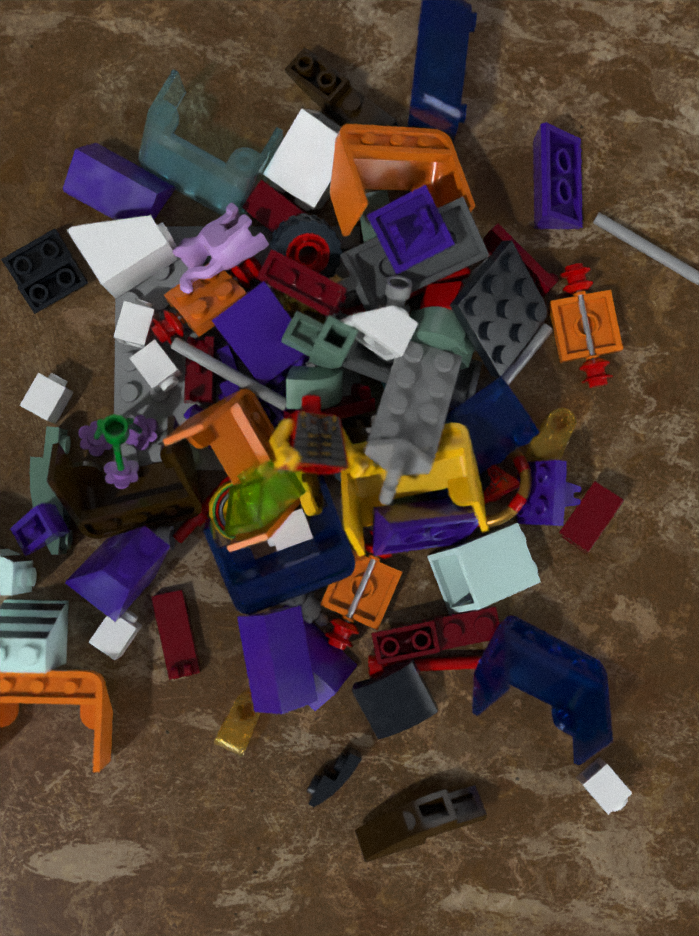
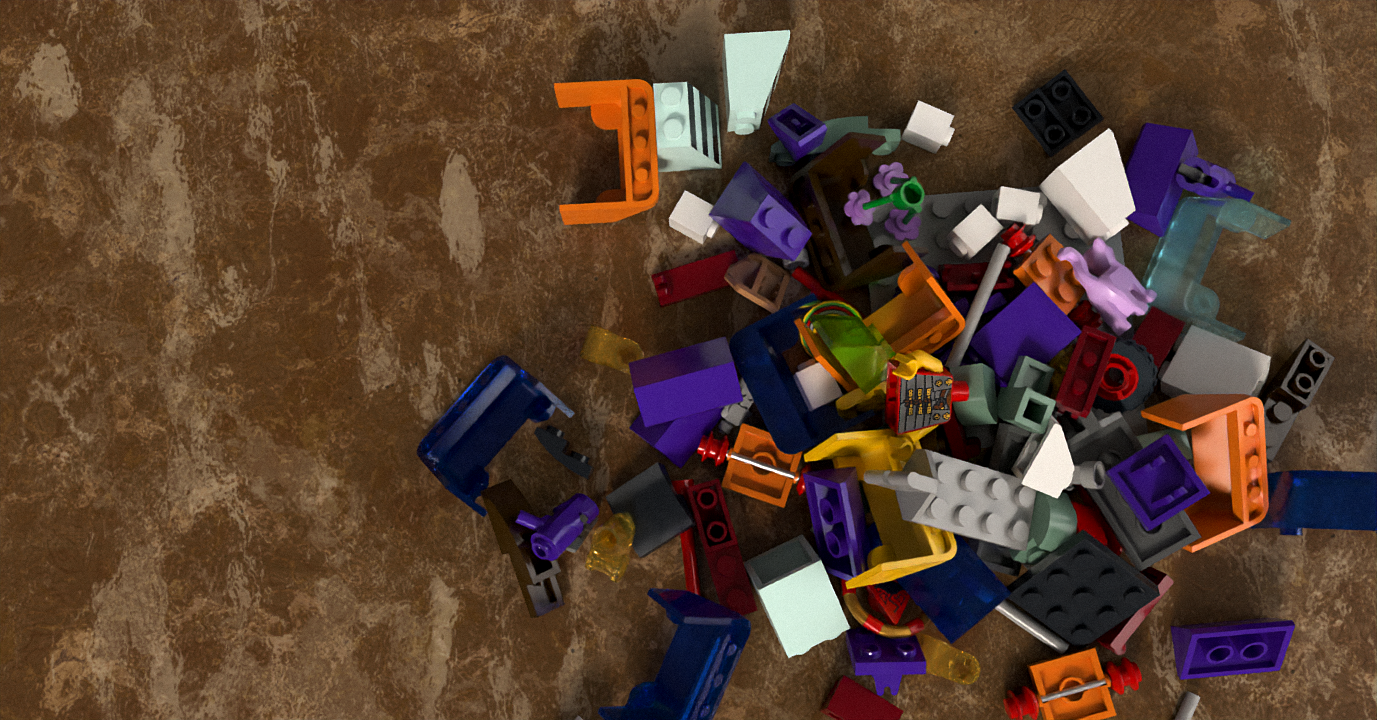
camera: 85 degrees right, 5 degrees down
(126, 138) = (1210, 180): none -> dark purple piece
(185, 577) = (759, 281): none -> medium nougat slope
(304, 858) = (482, 425): none -> clear blue windscreen
(409, 786) = (563, 529): none -> dark purple piece
(427, 738) = (611, 547): none -> clear yellow piece

